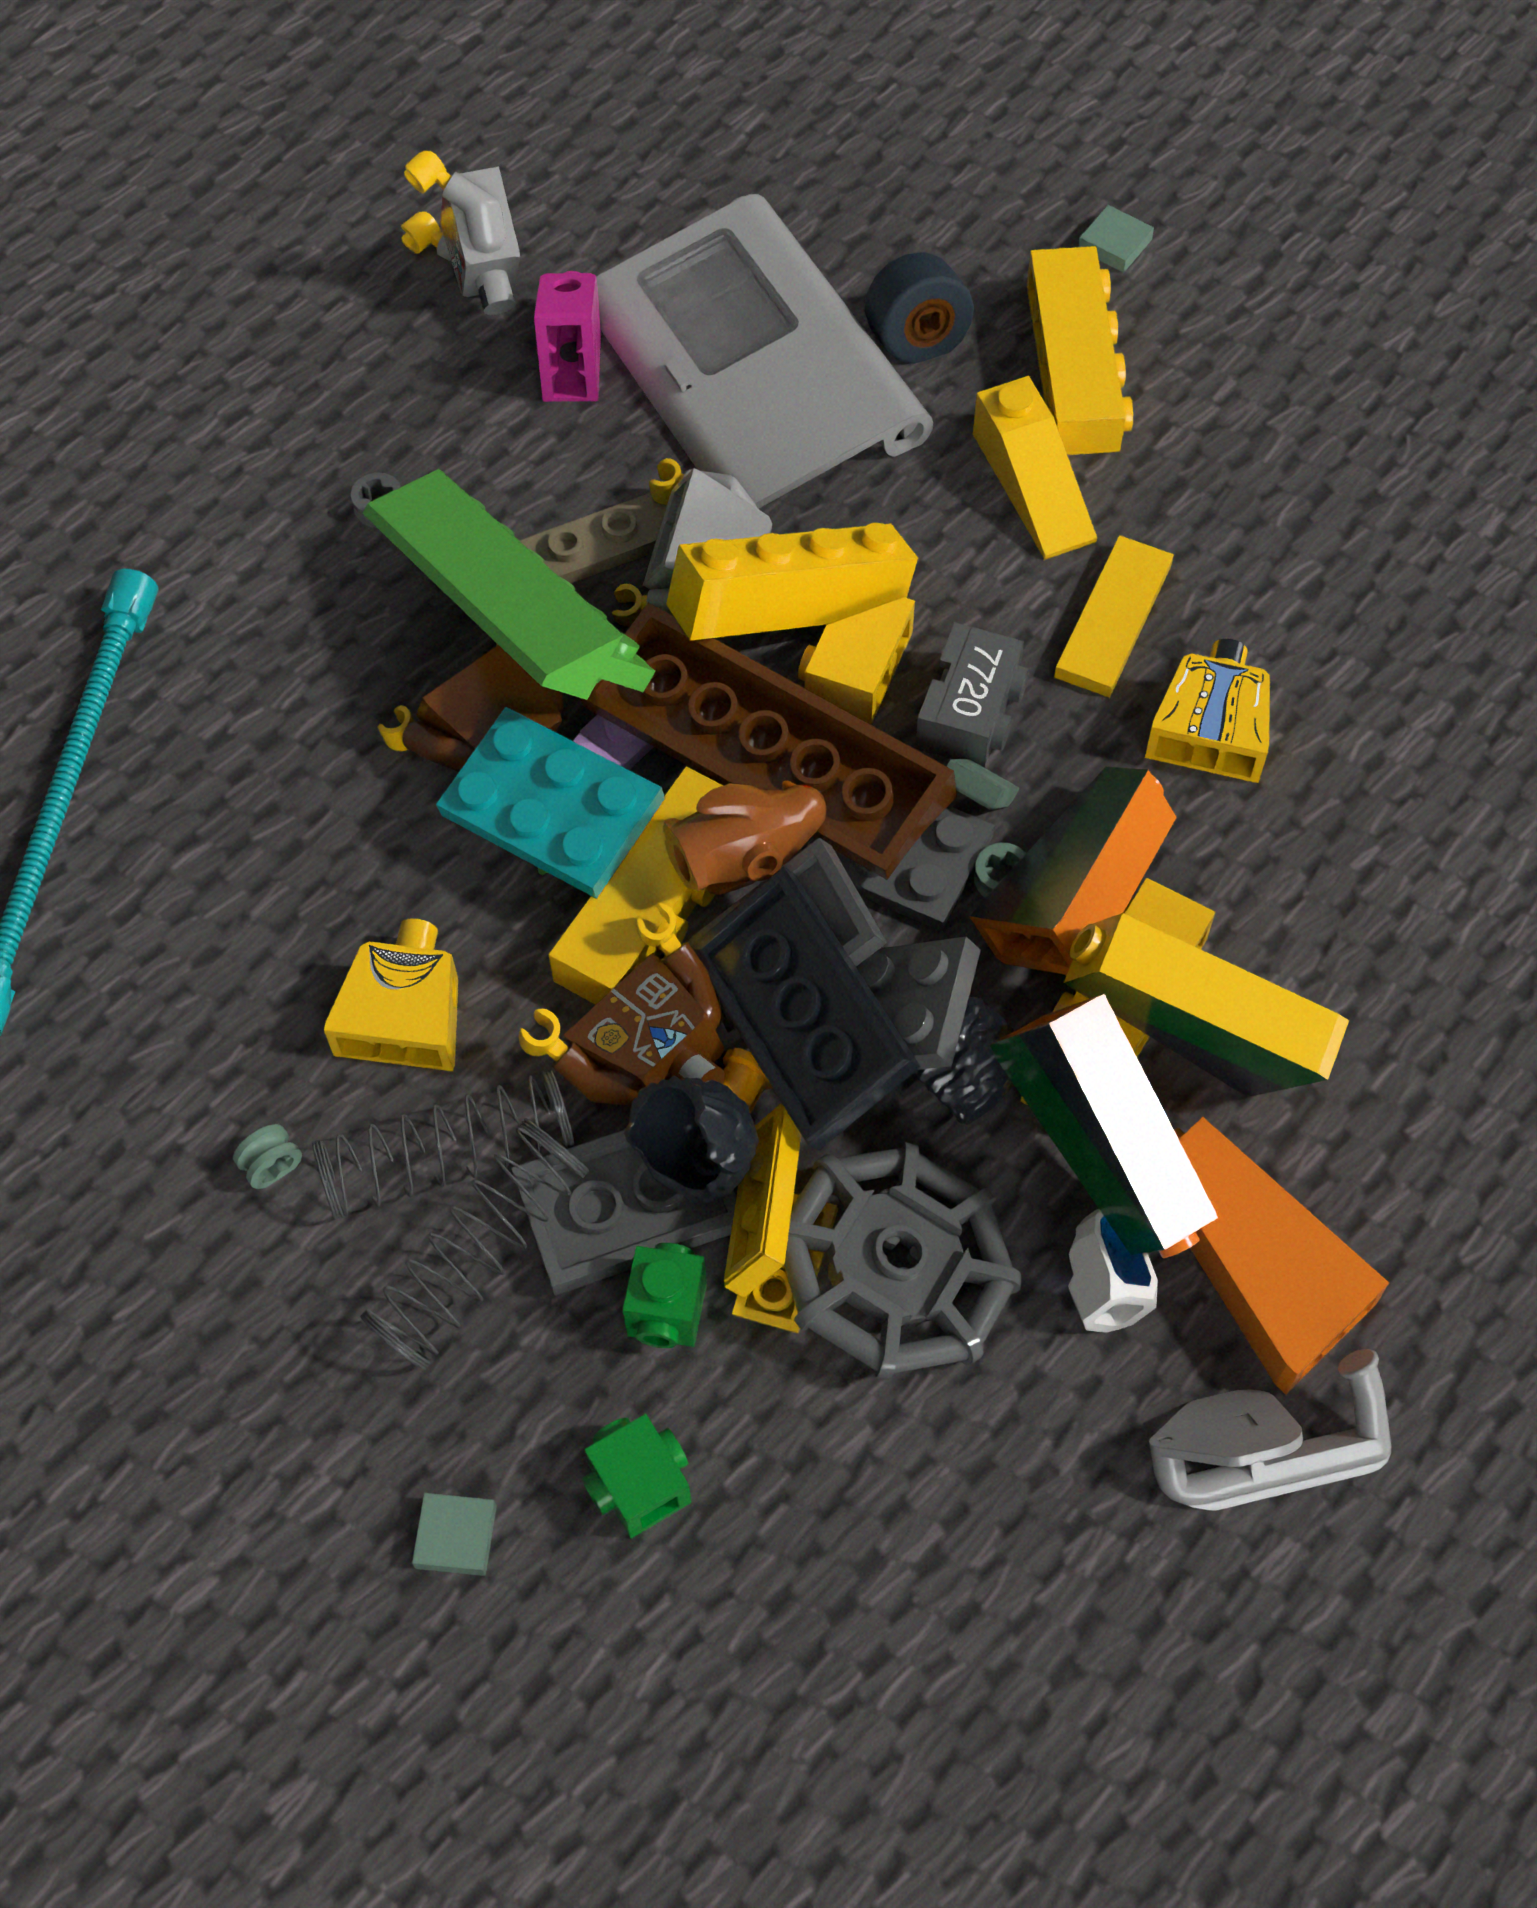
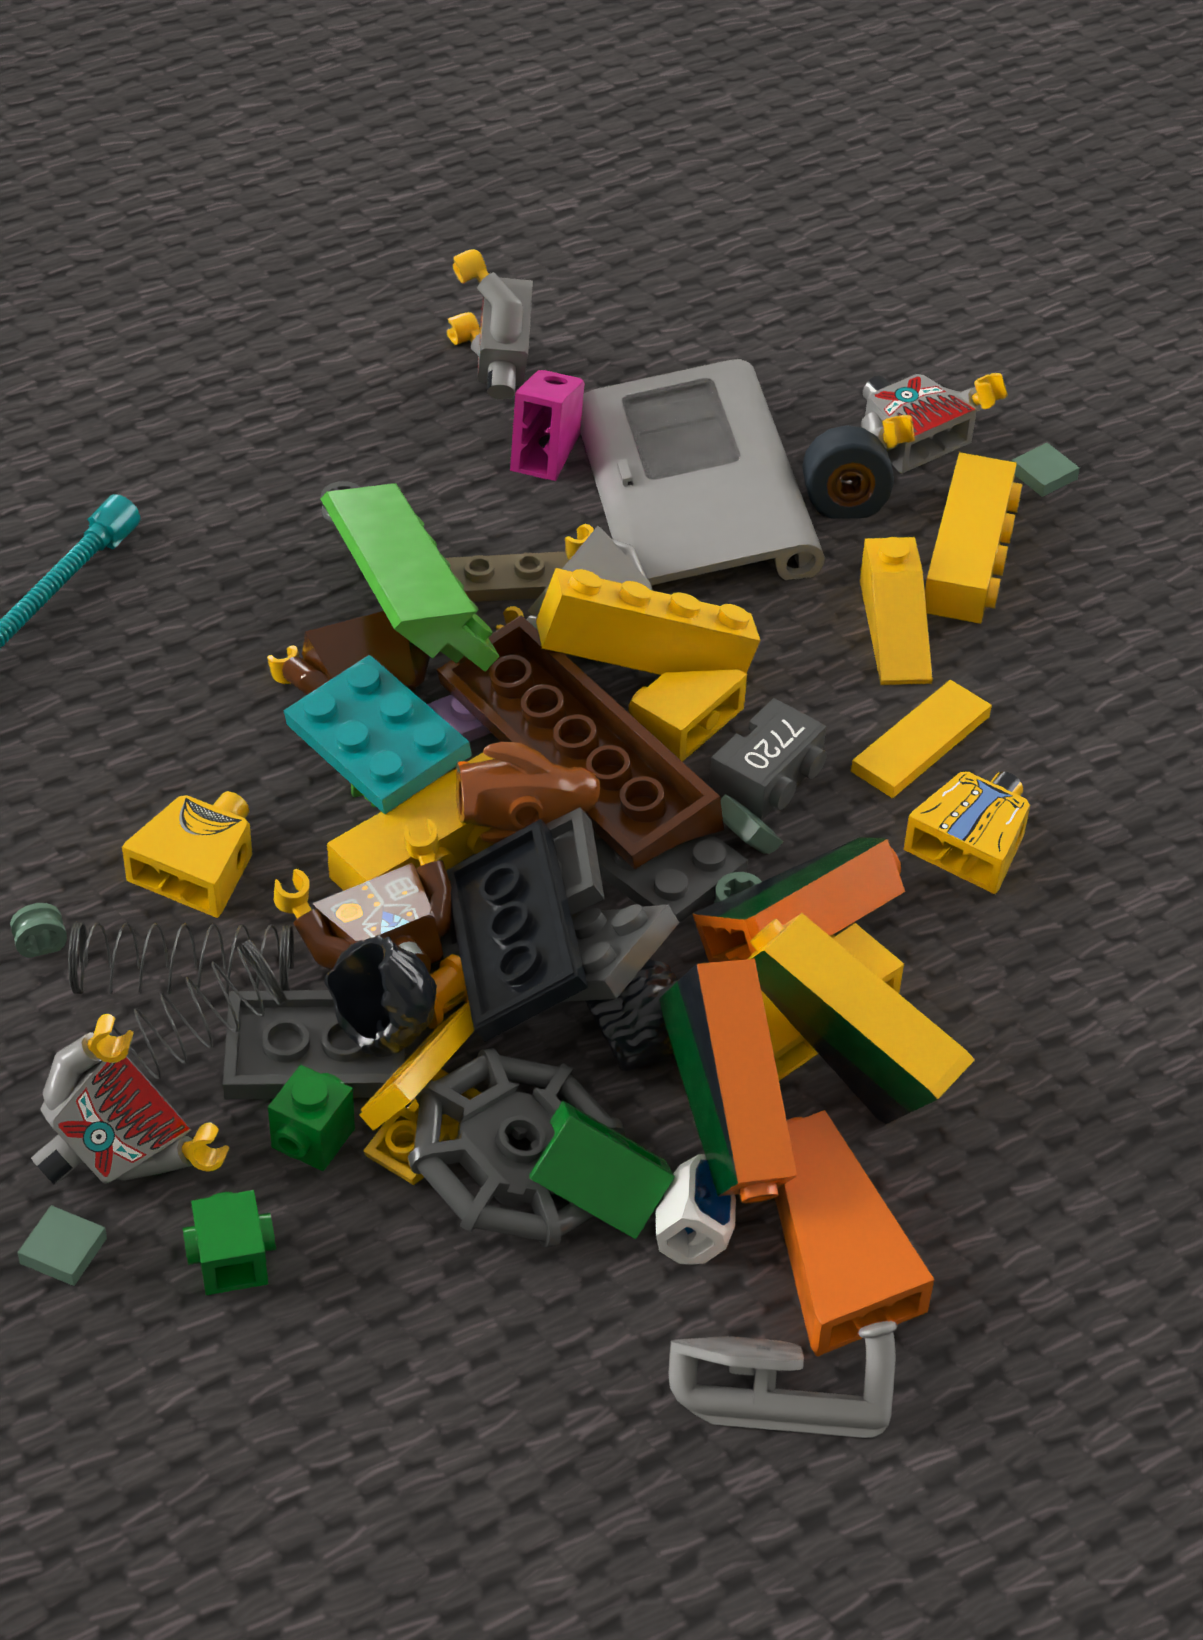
camera: 15 degrees right, 15 degrees down
(463, 1376) = (115, 1116): none -> torso
(969, 210) = (923, 419): none -> torso
(1002, 1262) = (602, 1171): none -> green panel

